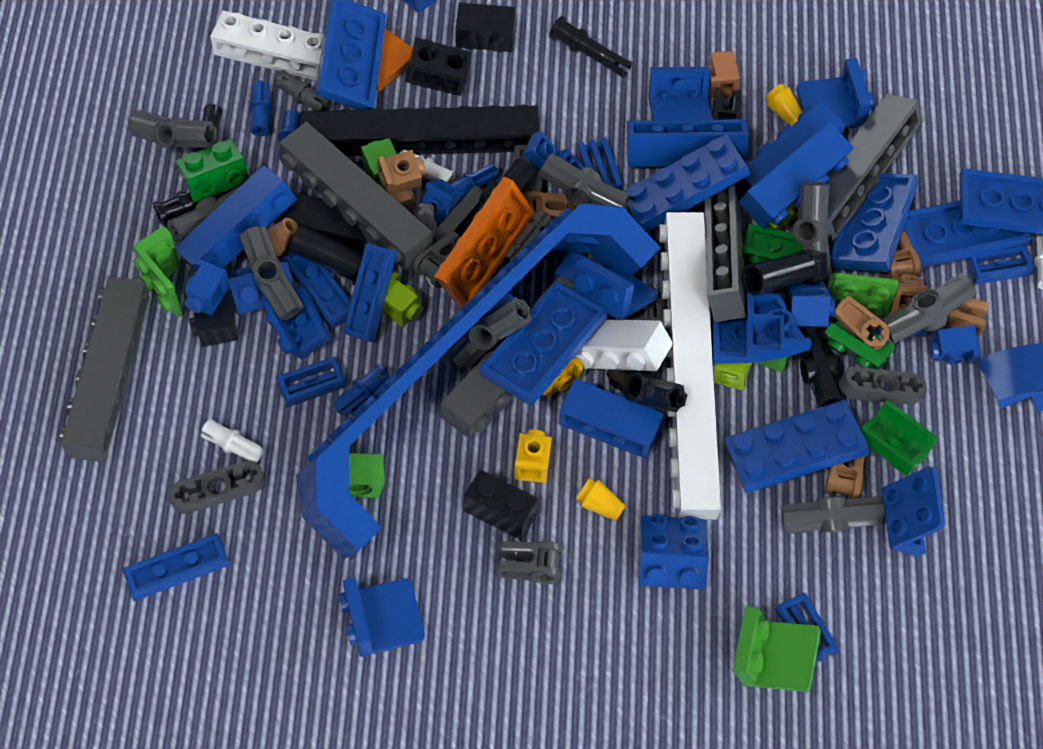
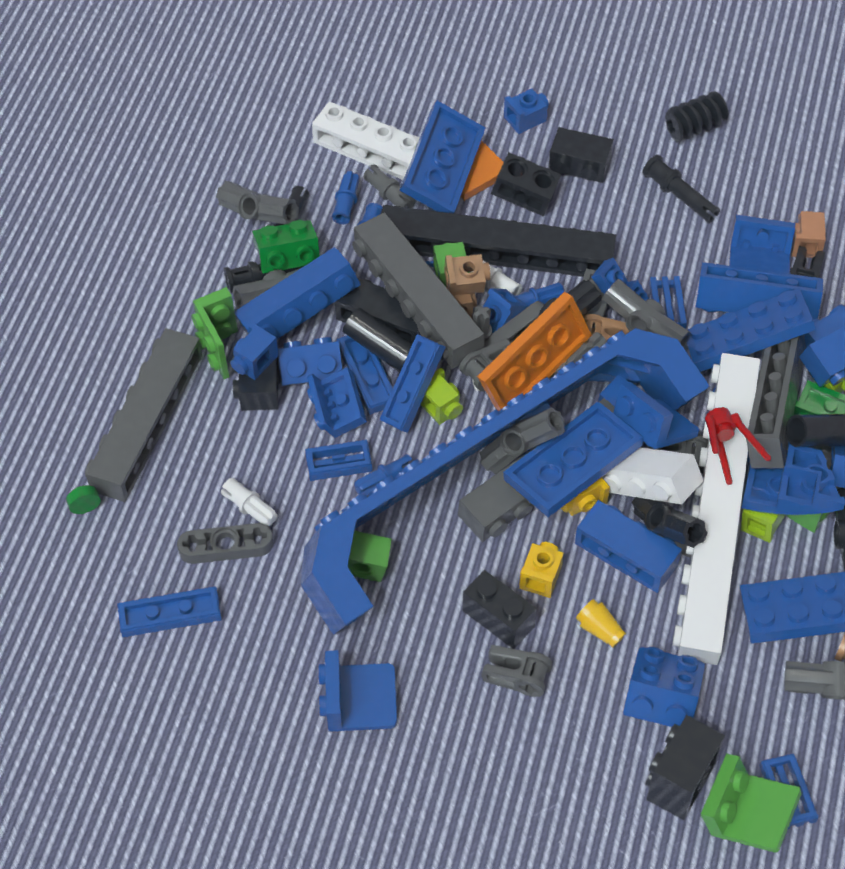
camera: 15 degrees right, 5 degrees down
(63, 468) = (83, 499): none -> green tile
(262, 257) = (322, 364): dark grey piece -> none
(282, 234) = (332, 319): medium nougat cone -> none
(681, 289) = (721, 429): none -> red plant
(706, 626) = (683, 766): none -> black brick

